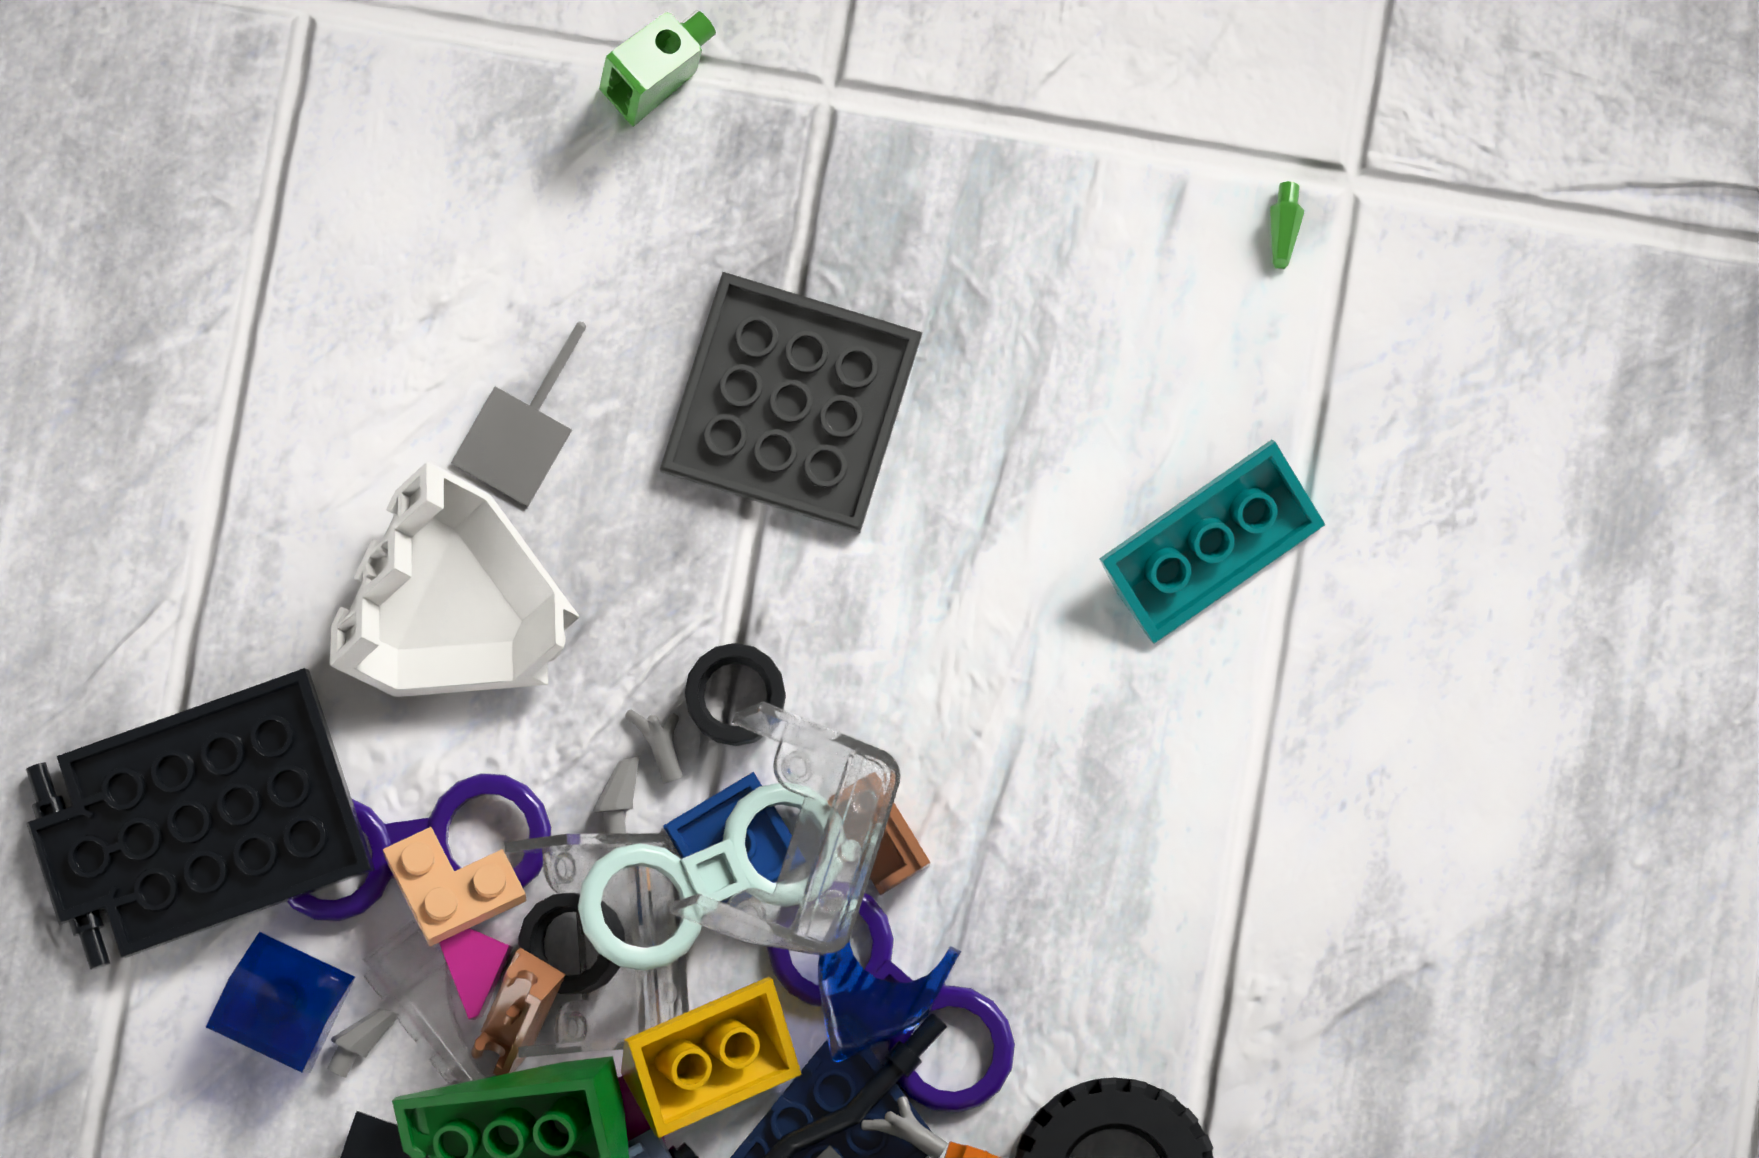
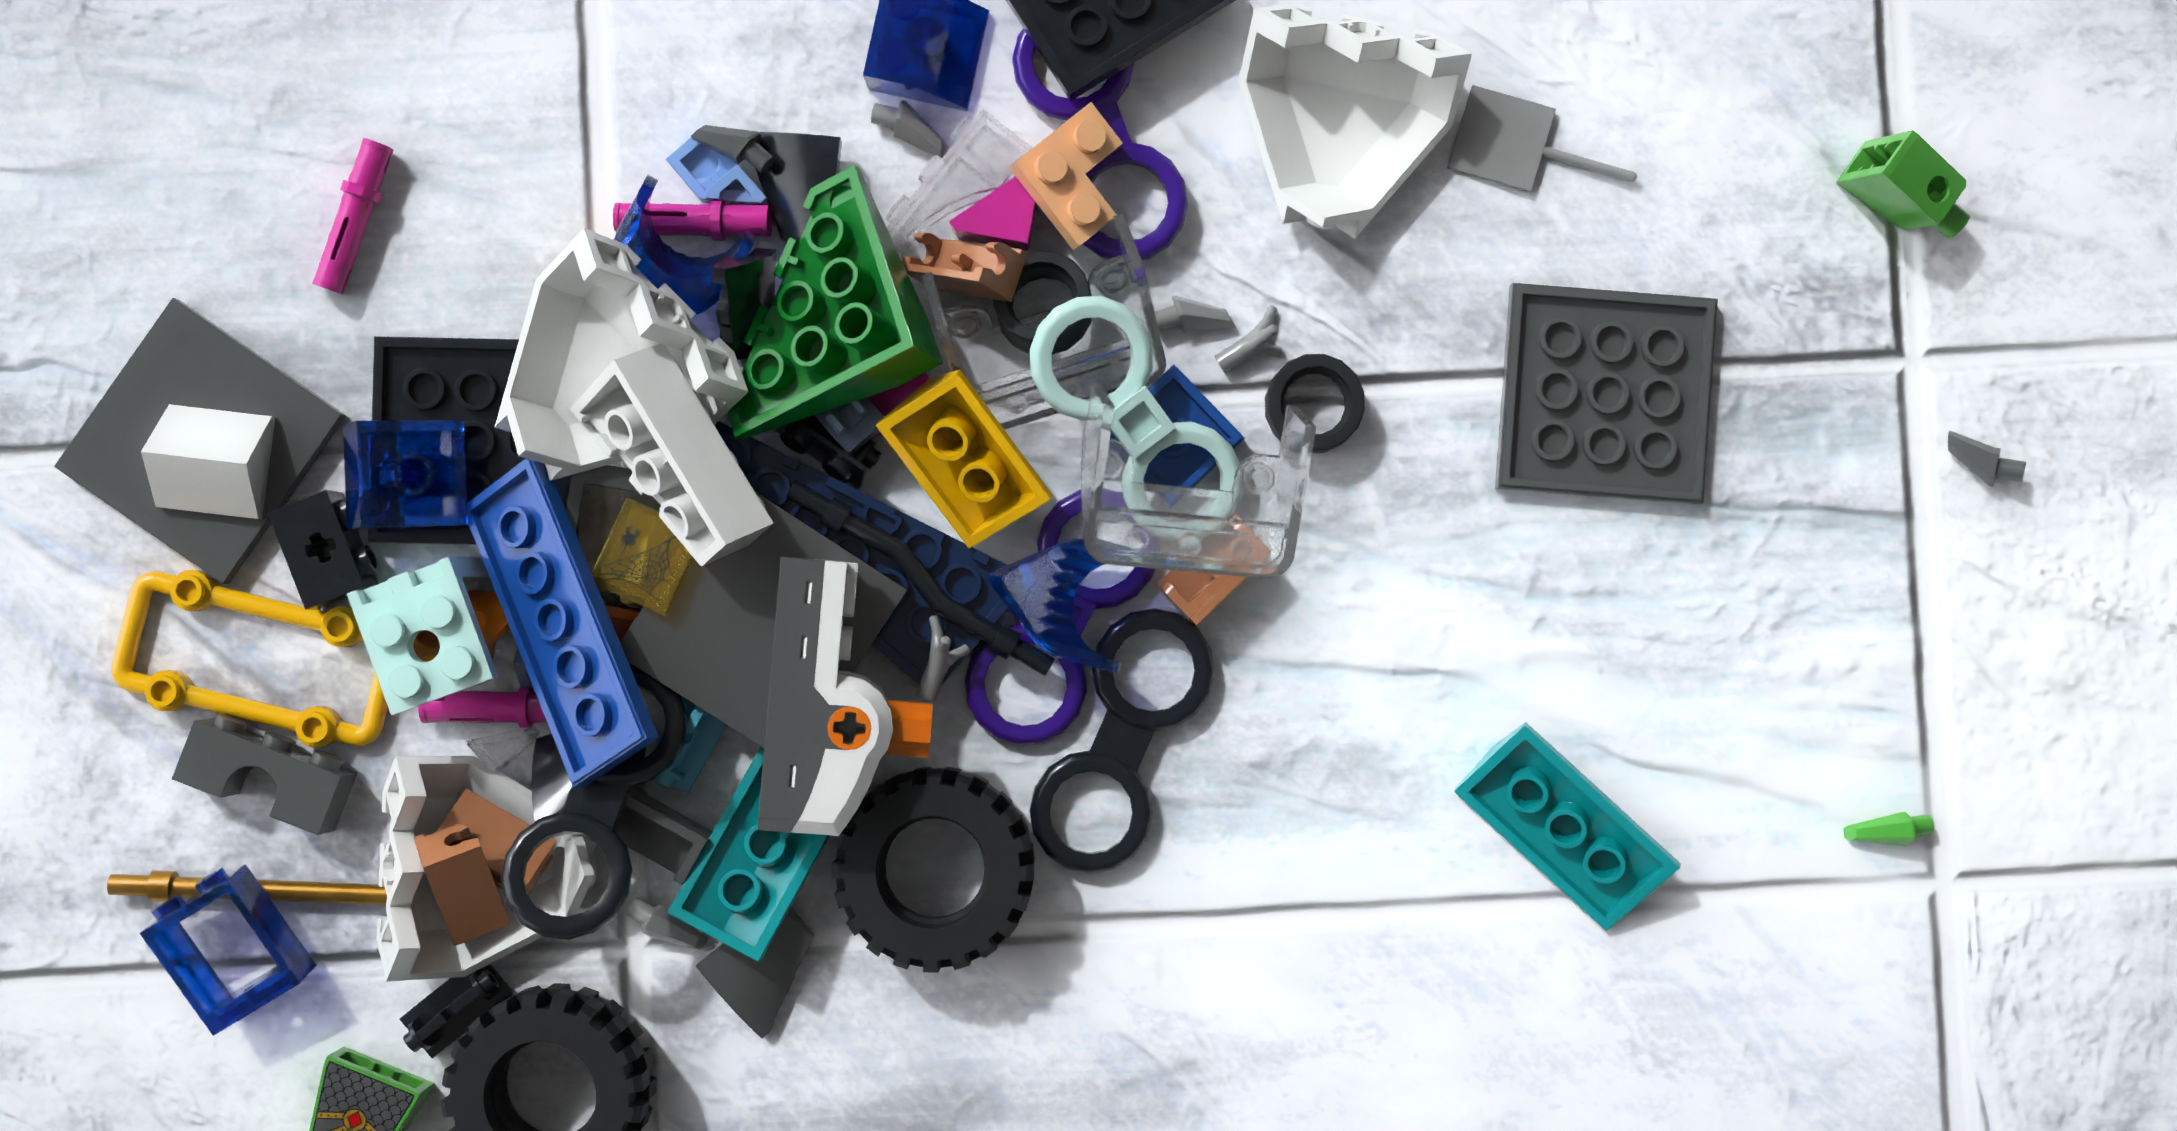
camera: 75 degrees right, 5 degrees up
(941, 48) = (1984, 459): none -> dark grey bar
(1031, 964) = (1122, 743): none -> black bar

